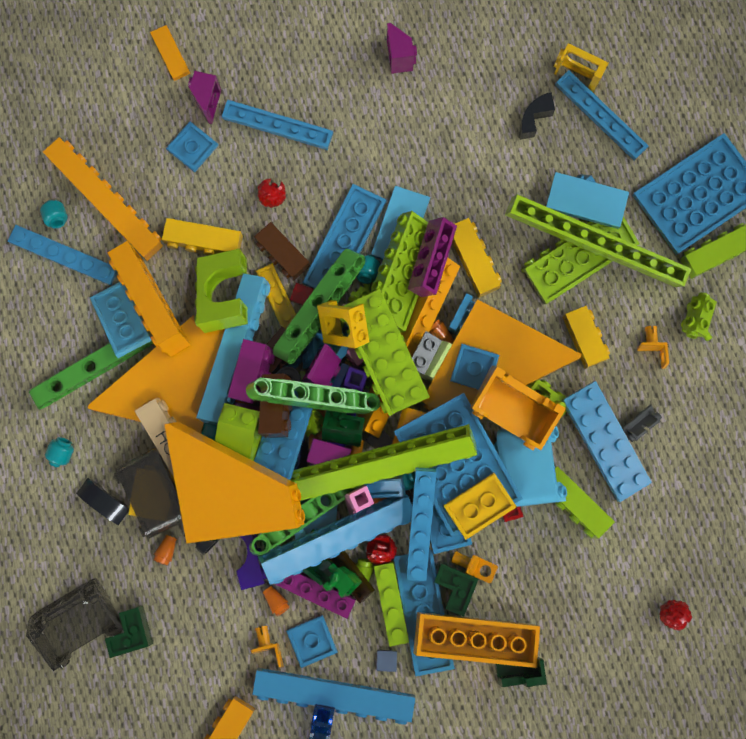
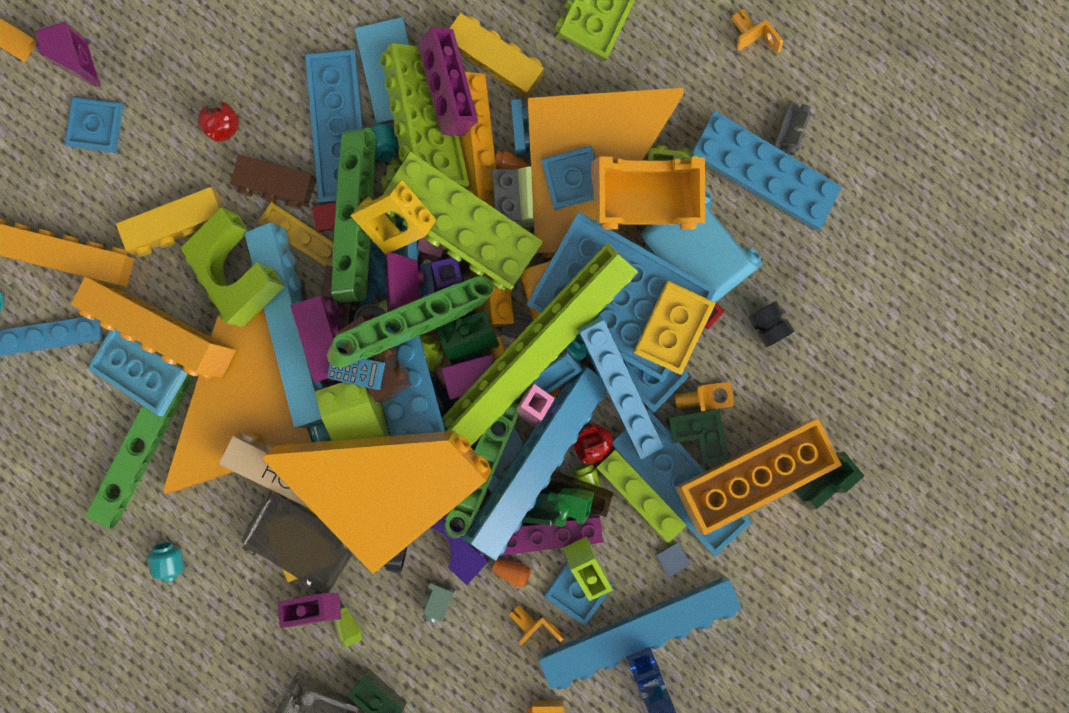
camera: 35 degrees left, 5 degrees up
(103, 502) = (250, 586): black brick -> none
(130, 541) = (309, 610): none -> magenta brick
(146, 569) = (348, 629): none -> lime cone
(165, 550) = (355, 594): orange cone -> none
(215, 589) = (437, 601): none -> sand green brick
(261, 410) = (362, 373): none -> dark azure tile
(277, 124) = (175, 39): dark azure plate -> none
(326, 629) = (587, 569): none -> lime brick
(548, 544) = (771, 324): none -> black wheel
(583, 508) = (786, 261): lime brick -> none
(586, 336) = (673, 68): yellow brick -> none
(675, 614) = (953, 314): red piece -> none

